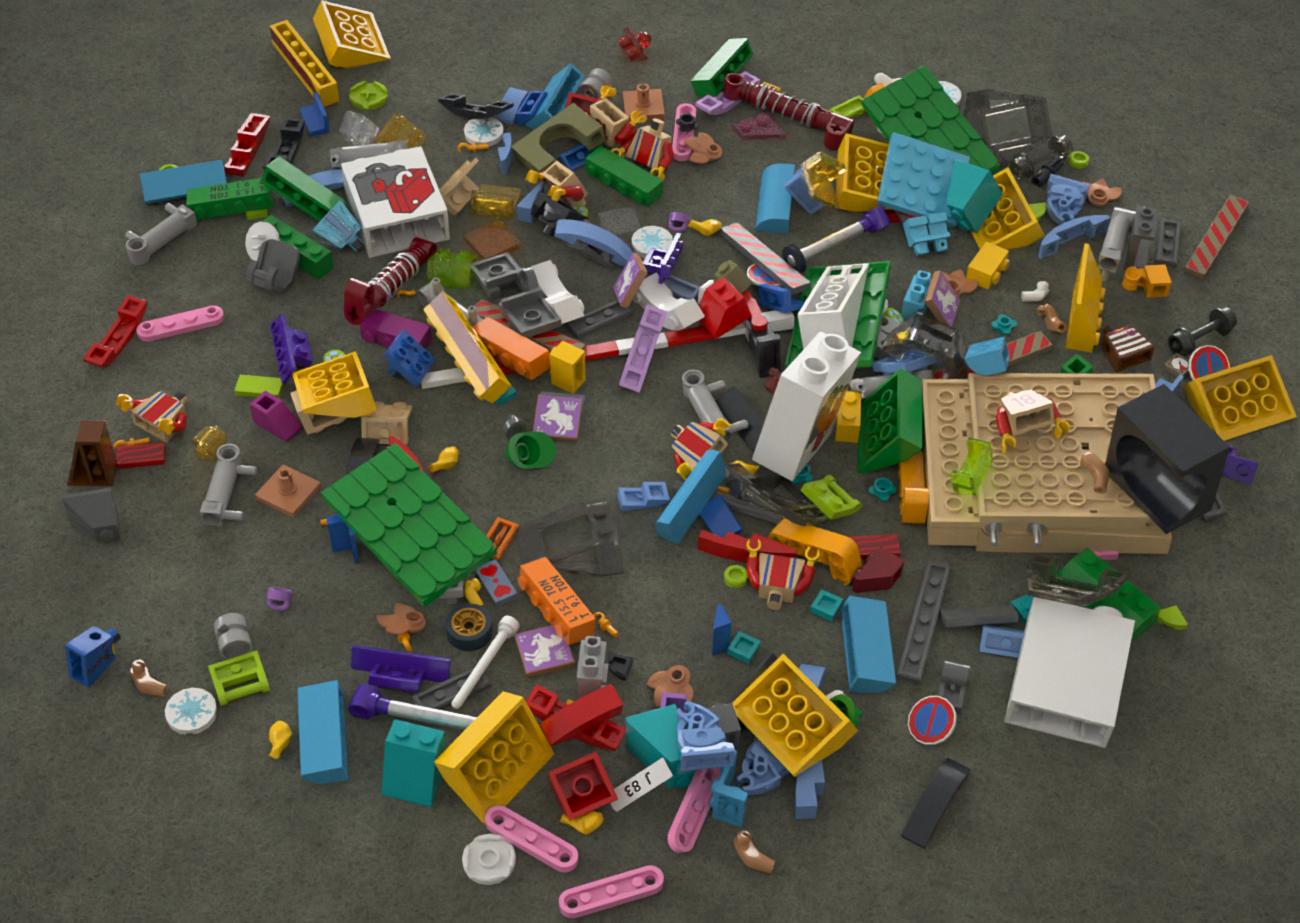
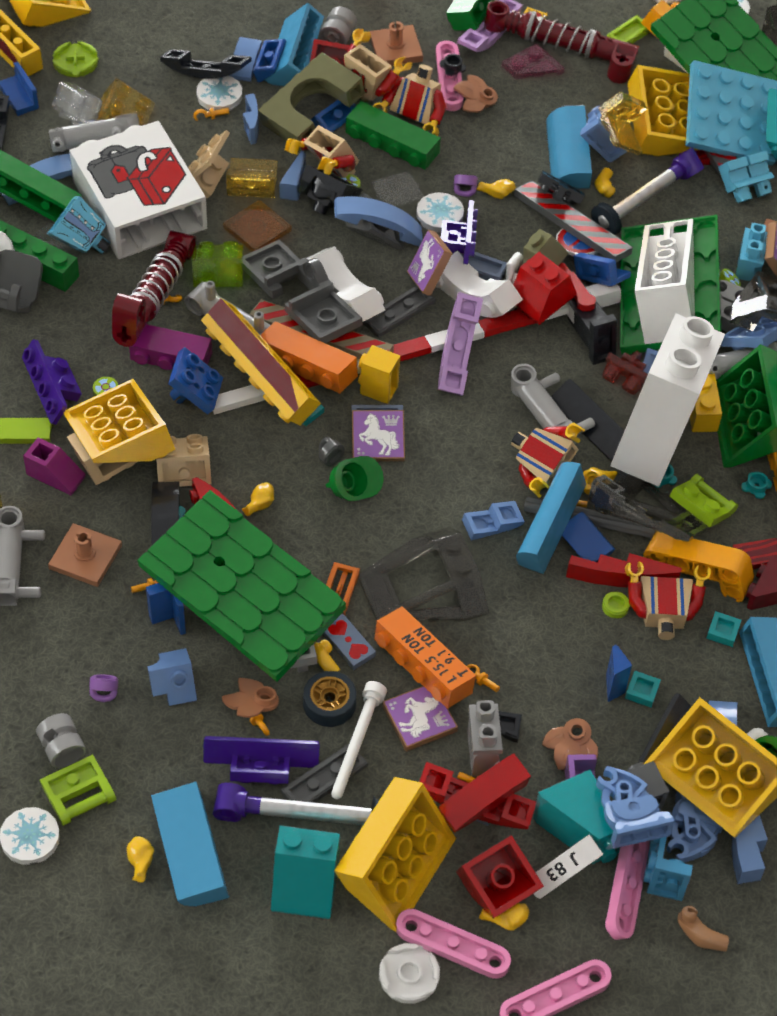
camera: 10 degrees left, 5 degrees up
(338, 594) = (173, 677): none -> medium blue brick
(758, 230) = (560, 188): none -> black hinge
(799, 230) = (604, 184): none -> yellow arm

